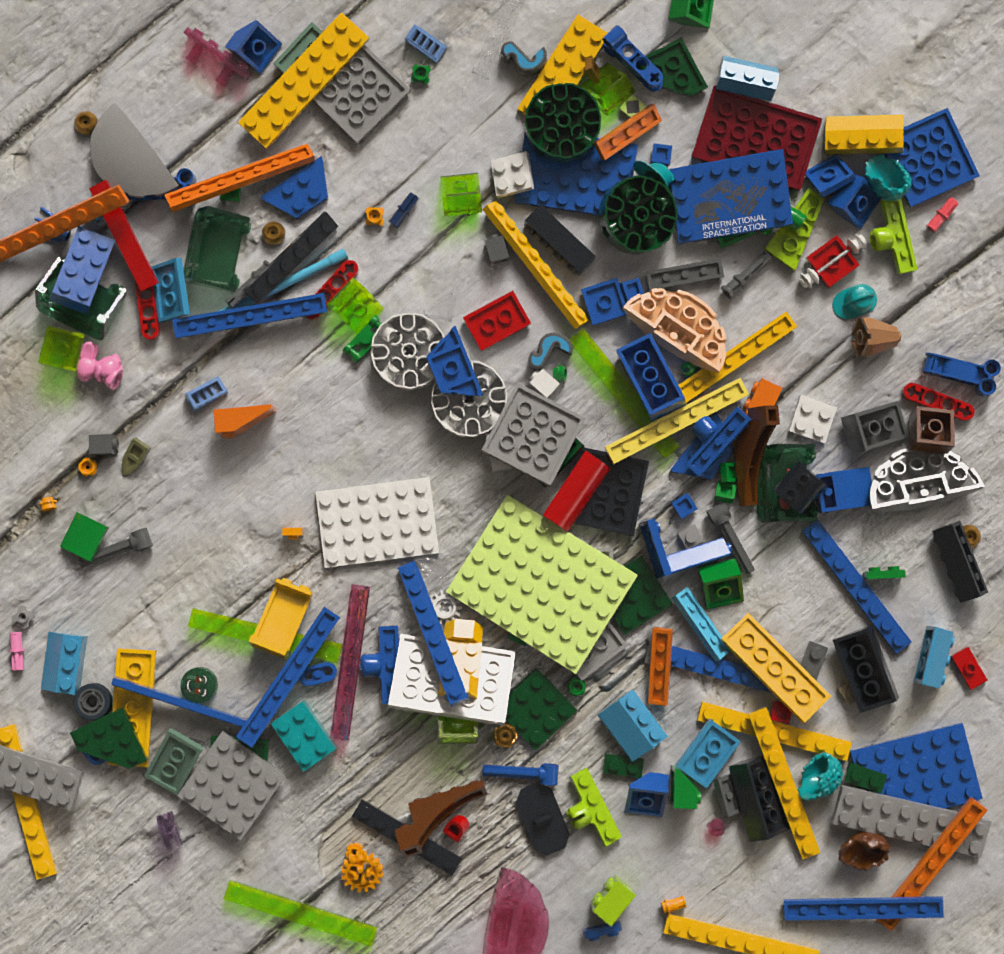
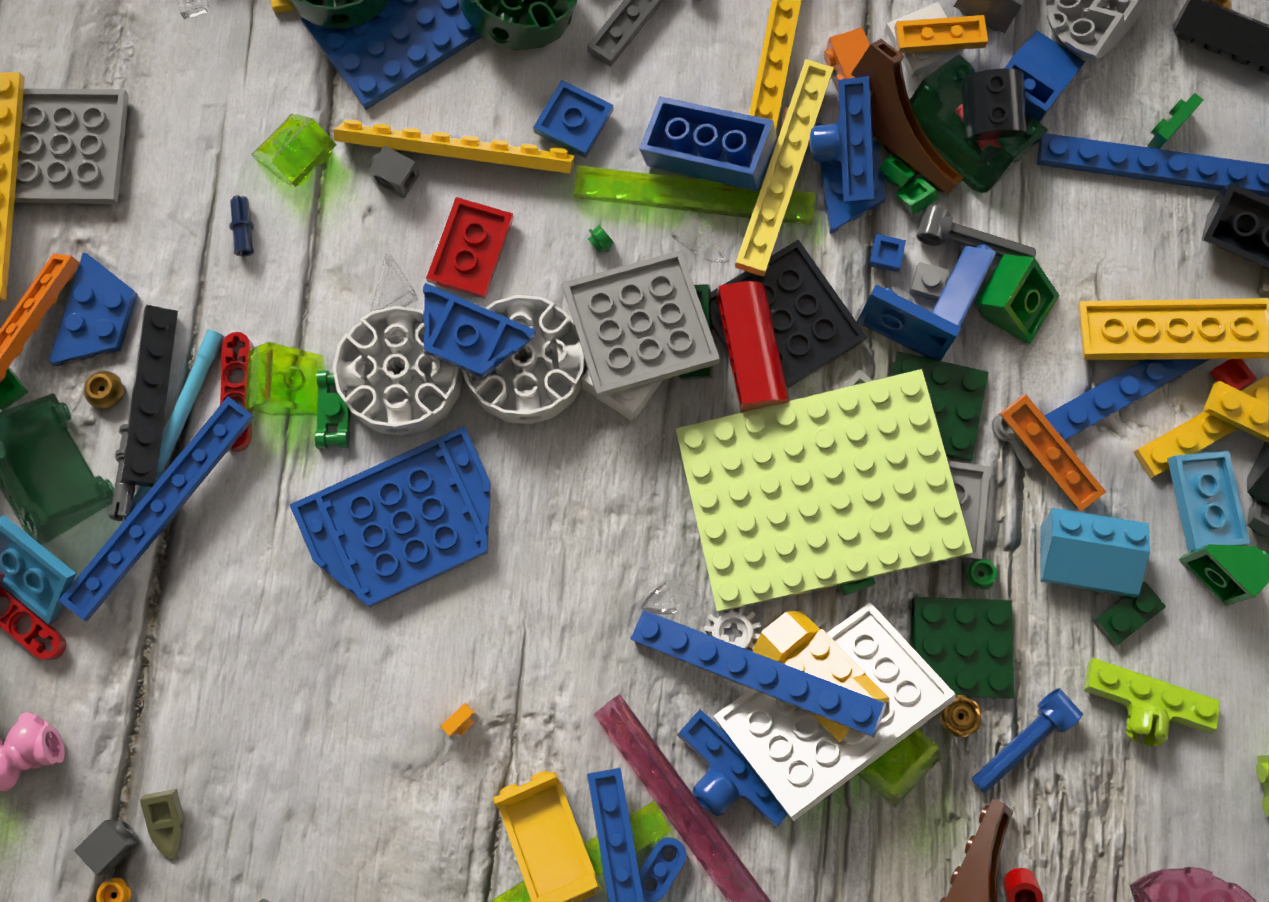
camera: 45 degrees left, 10 degrees down
(202, 388) = (195, 672): medium blue slope -> none
(236, 420) = (260, 643): orange slope -> none
(349, 419) = (401, 519): none -> blue plate
(374, 211) = (206, 257): light orange plate -> none
(377, 522) = (552, 610): white plate -> none
(422, 49) = (88, 42): medium blue slope -> none
(425, 70) = (120, 60): green plate -> none
(512, 174) = (333, 76): white plate -> none
(542, 818) = (1107, 773): black shield -> none
(543, 383) = (591, 260): white brick -> none
(545, 348) = (554, 216): dark grey animal -> none
(559, 240) = (456, 98): black brick -> none
(631, 288) = (591, 78): blue plate -> none
(648, 795) = (1199, 616): blue slope -> none
(680, 326) = (686, 65): light nougat brick -> none
(689, 368) = (739, 102): green arm -> none
(701, 624) = (1043, 363): medium azure plate -> none
(814, 658) = (1199, 280): dark grey plate -> none
(816, 427) = (941, 34): none -> light orange plate

